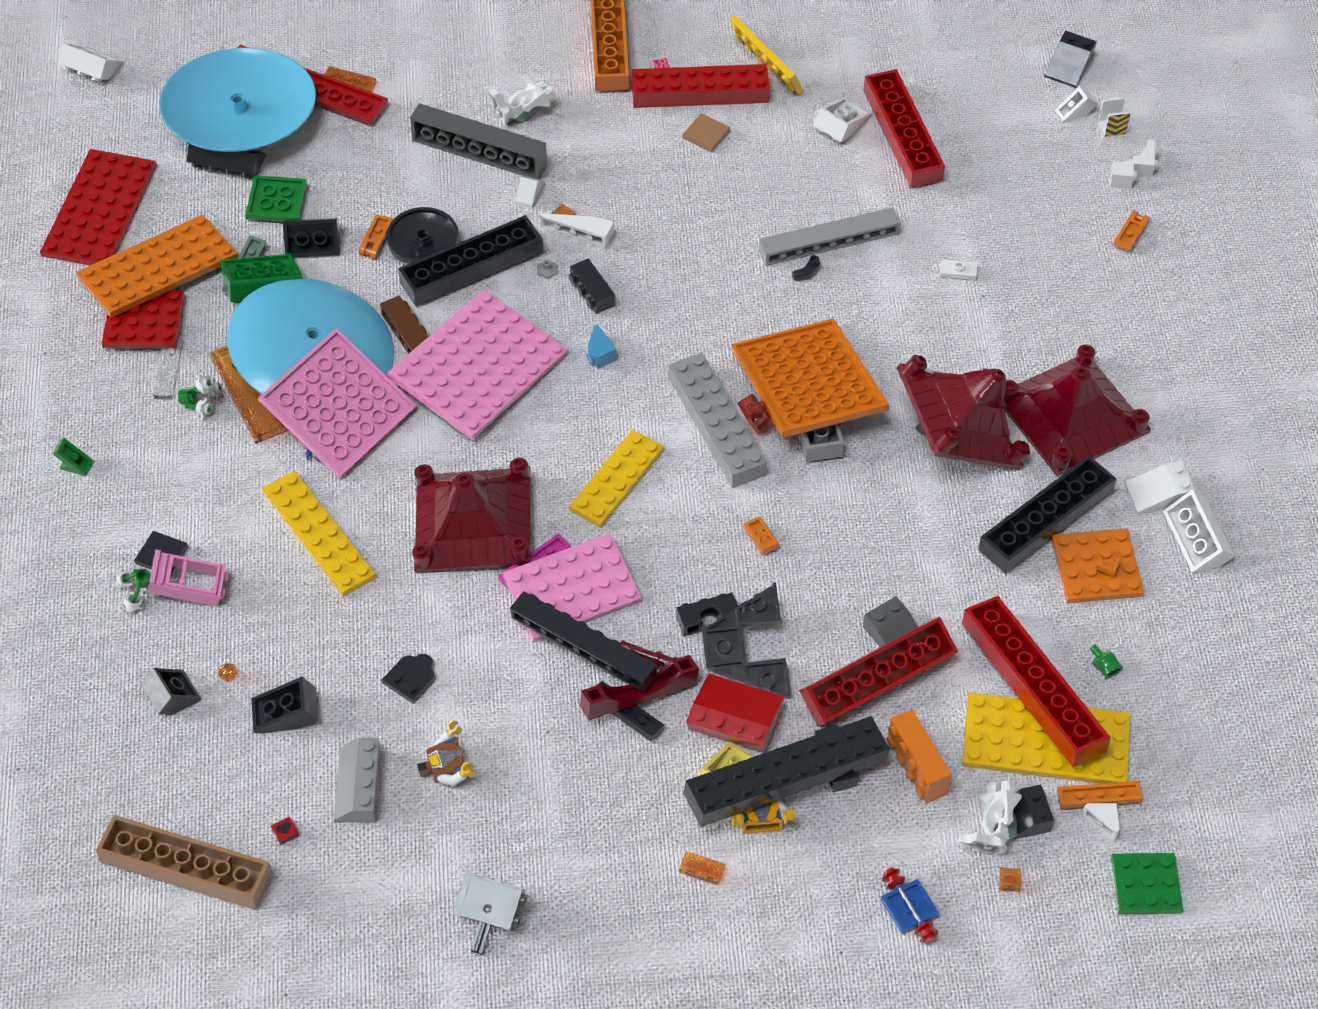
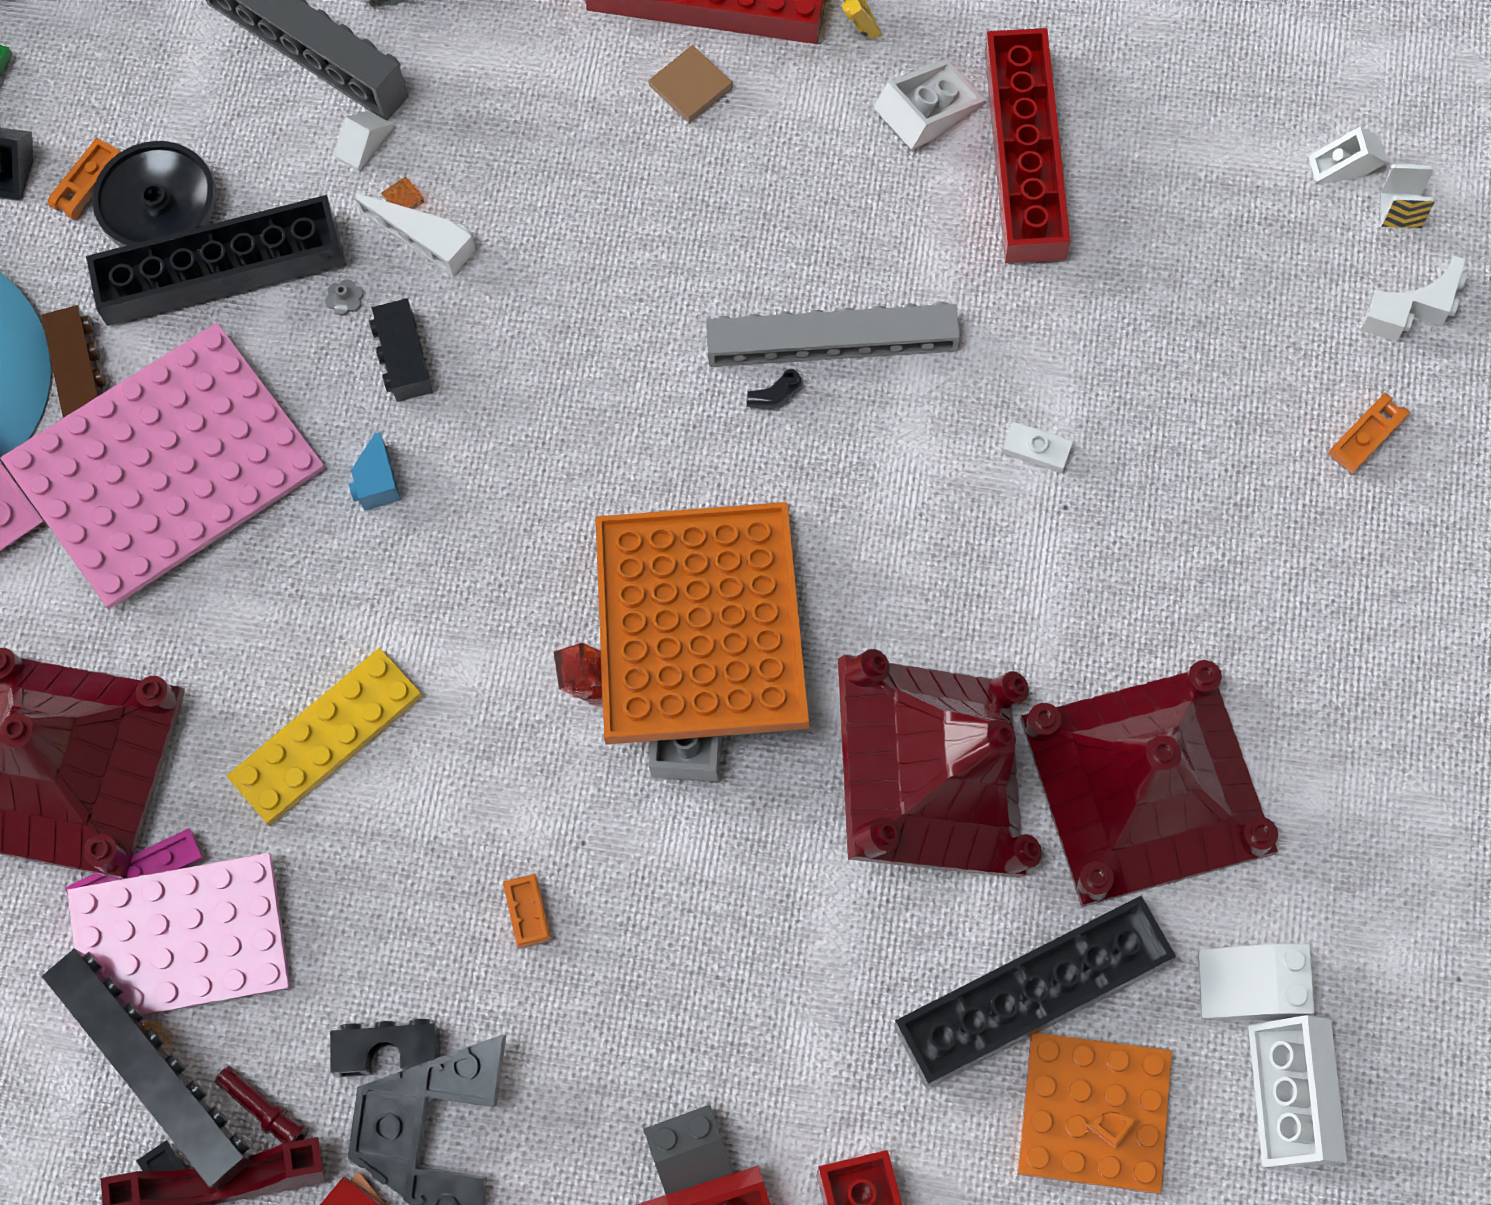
camera: 20 degrees right, 15 degrees up
(717, 420) = (523, 664): light grey brick -> none
(1071, 59) = (1367, 60): slope -> none

